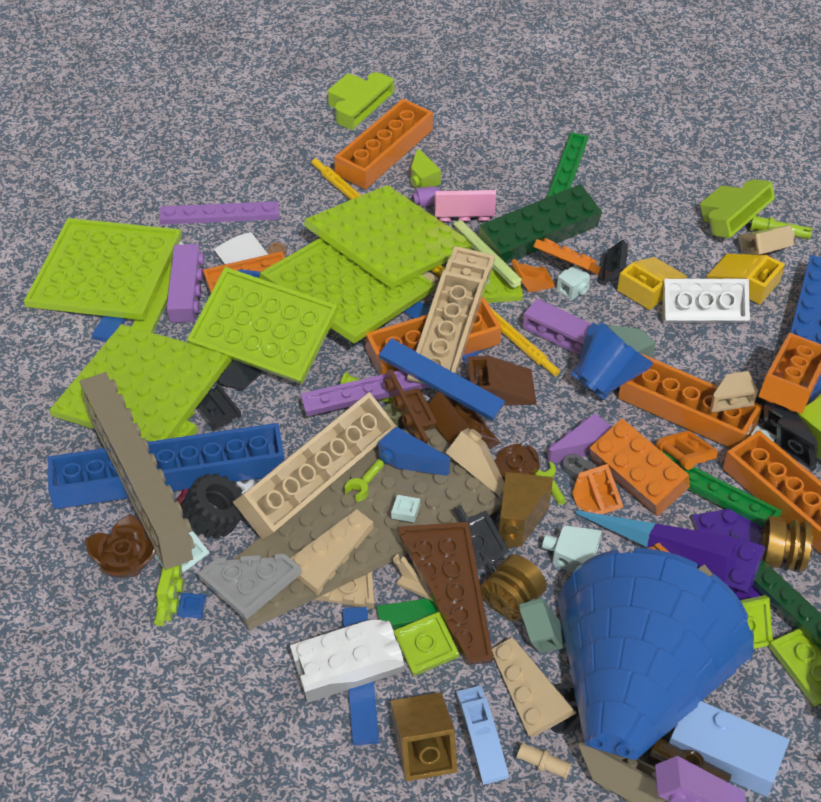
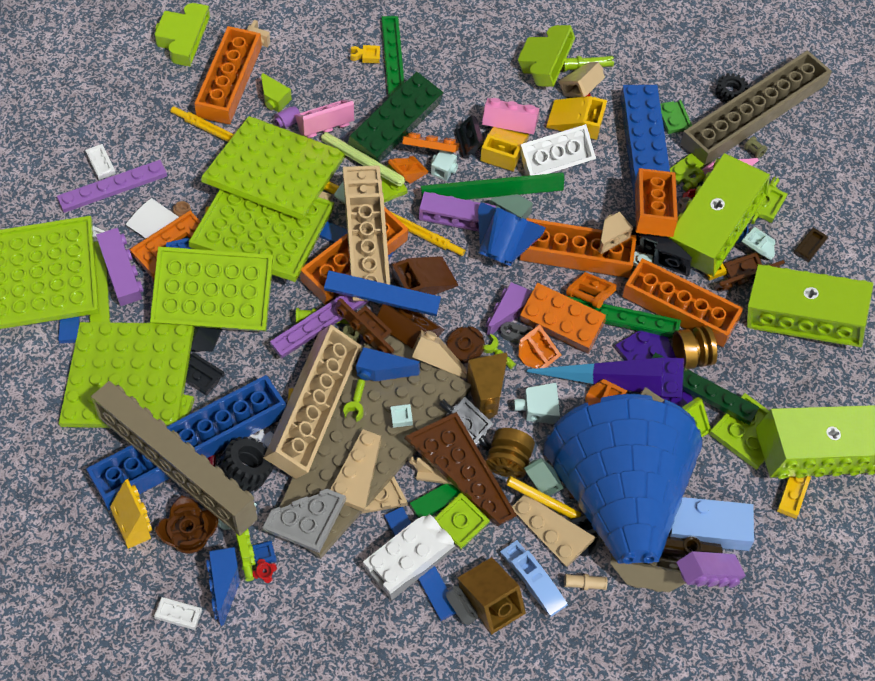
camera: 25 degrees left, 10 degrees up
(69, 518) = (131, 515): none -> yellow slope
(69, 635) = (178, 613): none -> white plate
(129, 616) = (223, 581): none -> blue slope
(183, 630) = (258, 573): none -> red plate
(218, 188) = (100, 161): none -> white plate
(383, 734) = (461, 605): none -> dark grey beam
(438, 118) = (265, 35): none -> tan bracket
(530, 648) = (542, 498): none -> yellow piece
(539, 162) = (368, 54): none -> yellow plate
(650, 323) = (499, 186): none -> green tile
(668, 252) = (510, 115): none -> bright pink slope

